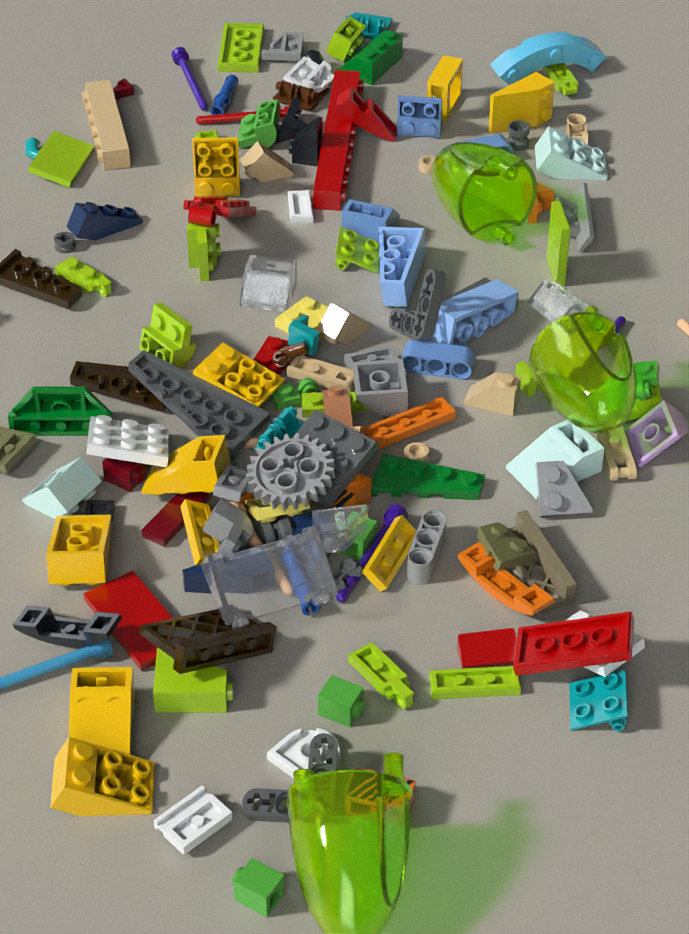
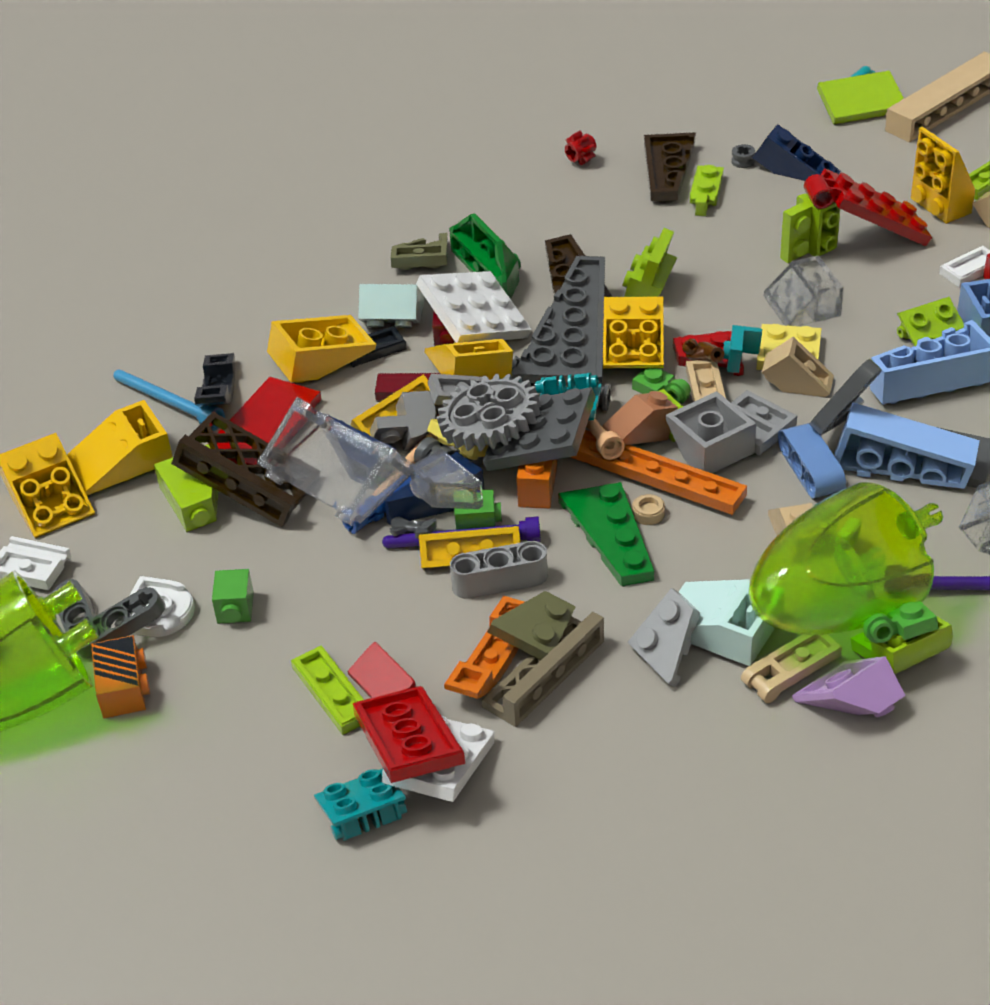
camera: 65 degrees right, 0 degrees up
(382, 674) = (291, 612): lime hinge -> none

